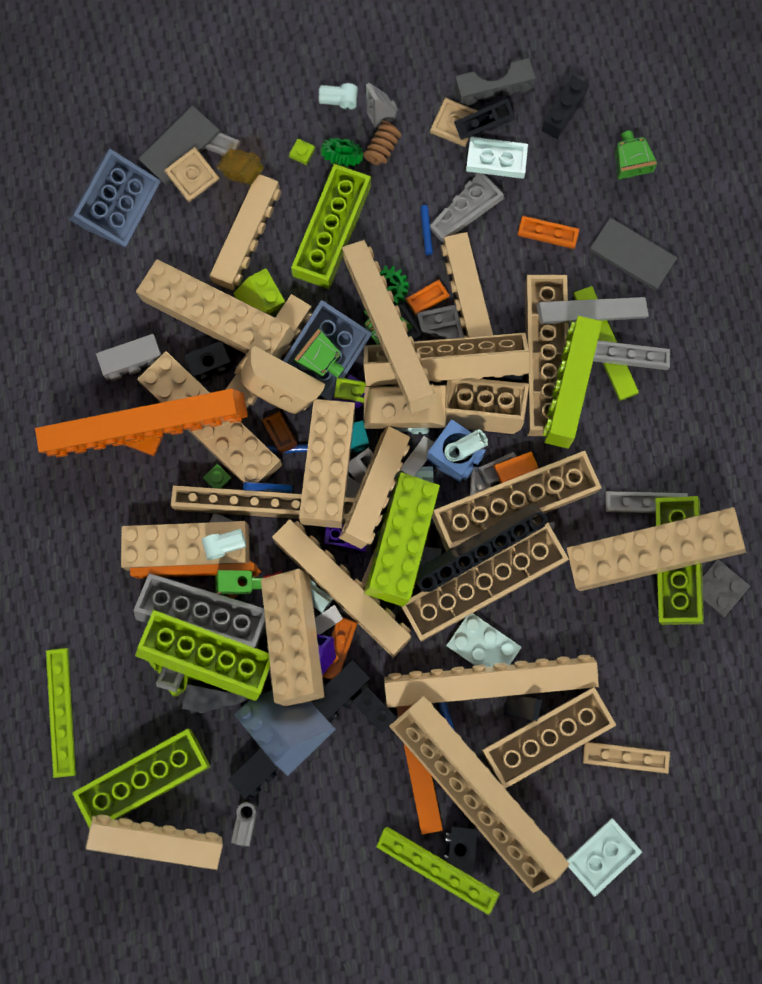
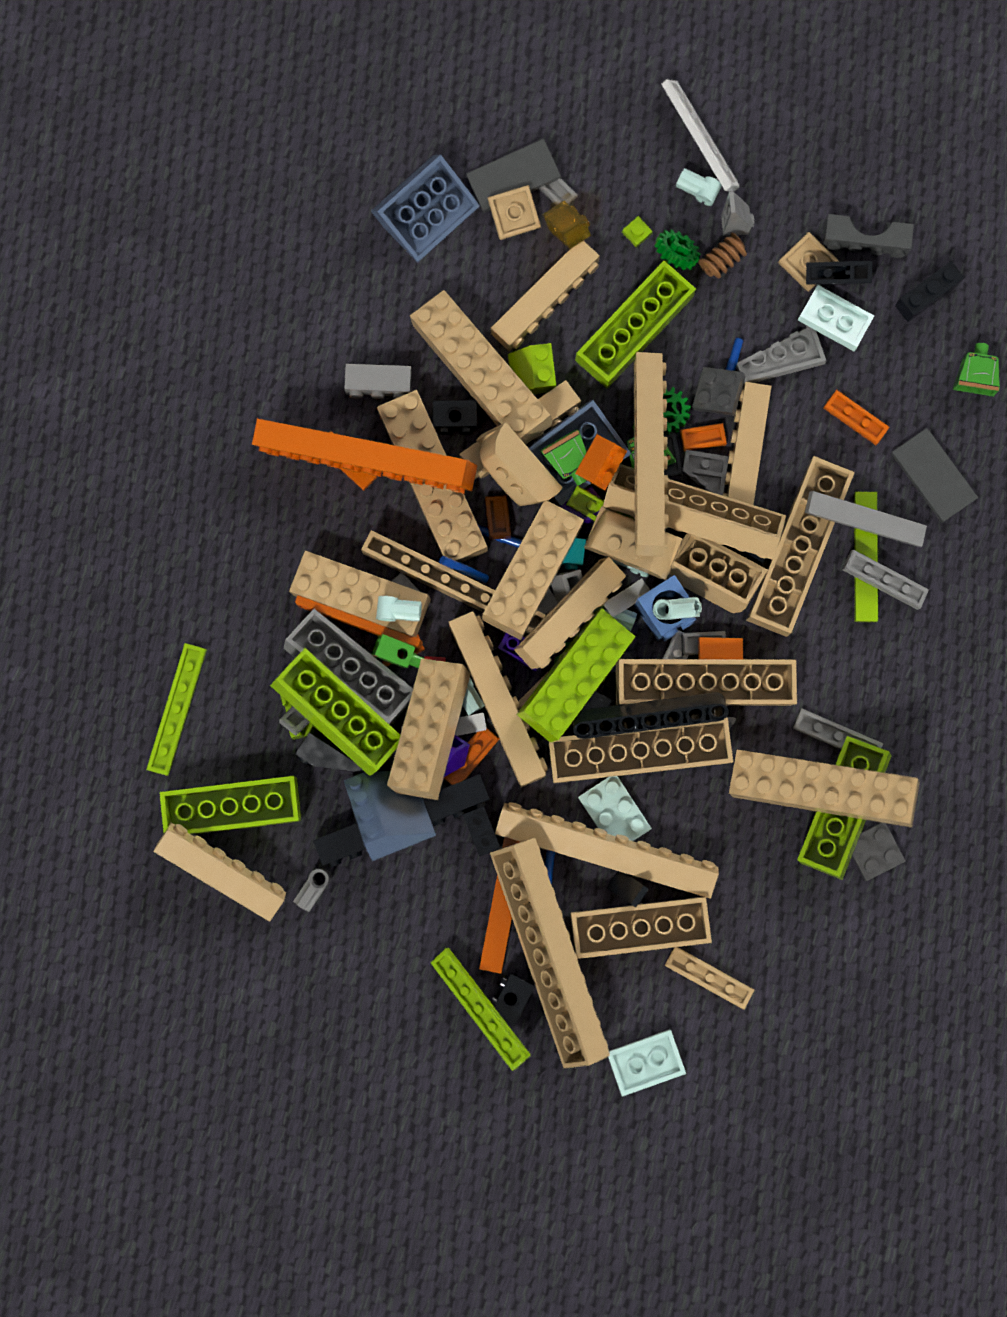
camera: 20 degrees right, 5 degrees up
(217, 477) = (418, 538): bright green plate -> none
(322, 53) = (700, 135): none -> white tile
(349, 348) = (601, 462): none -> orange slope
(424, 254) = (719, 391): none -> flat silver plate
(573, 382) = (813, 585): lime brick -> none

